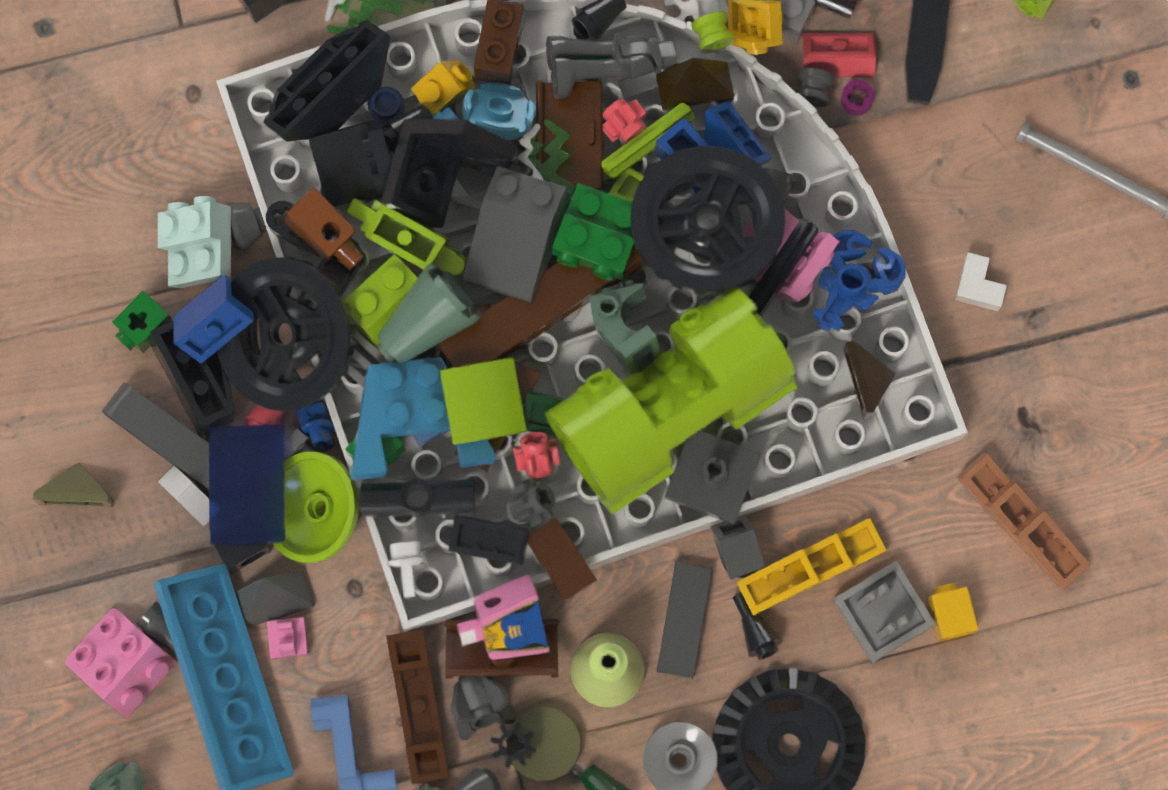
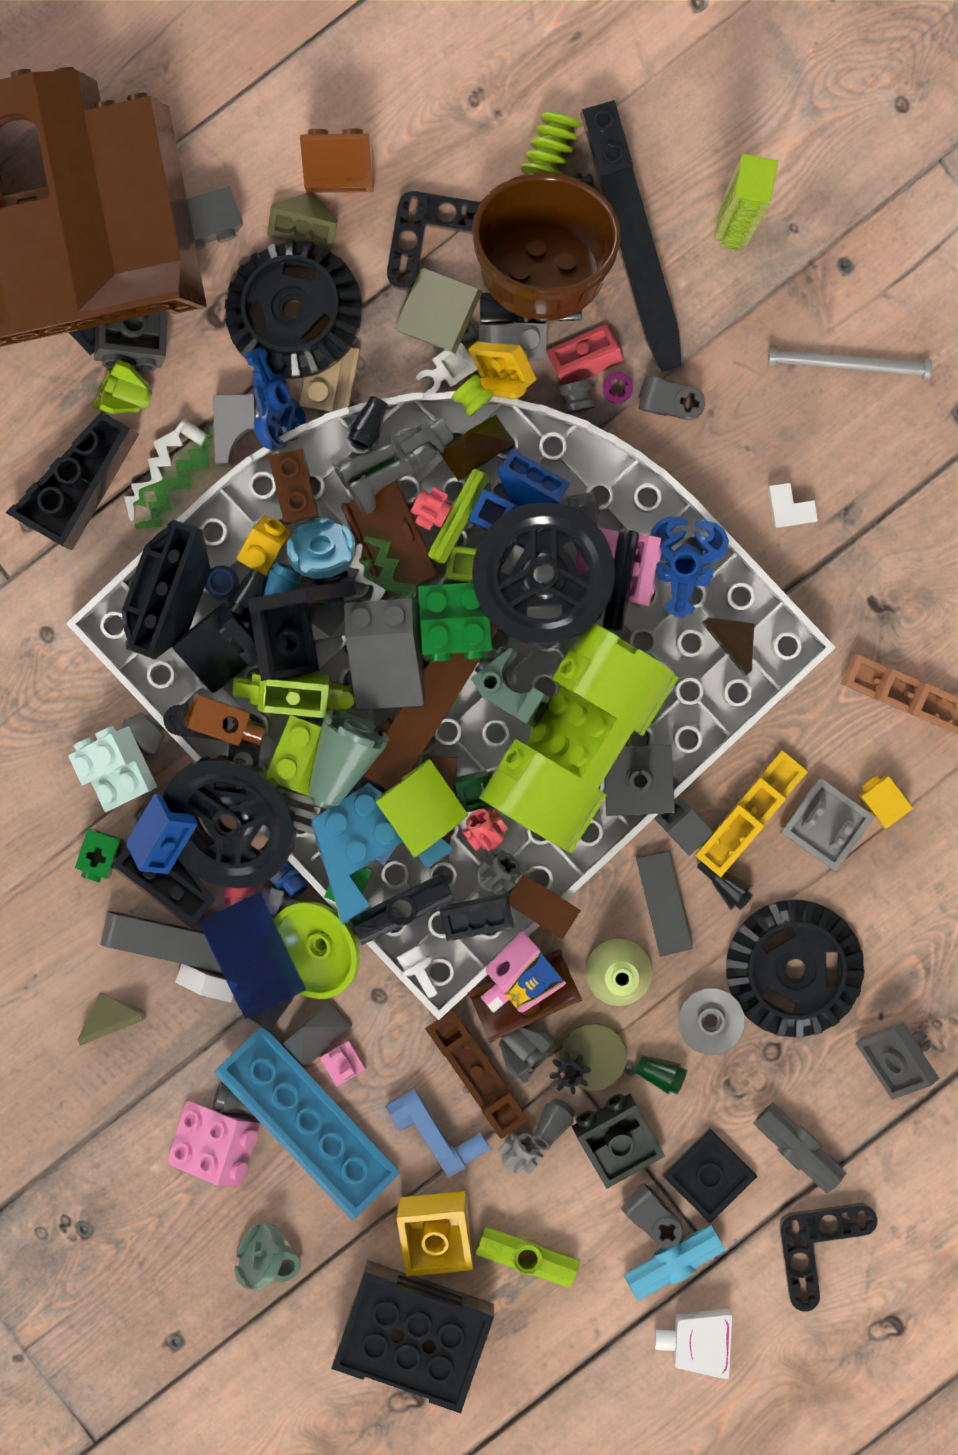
camera: 25 degrees left, 10 degrees up
(902, 126) = (664, 398): none -> dark grey piece

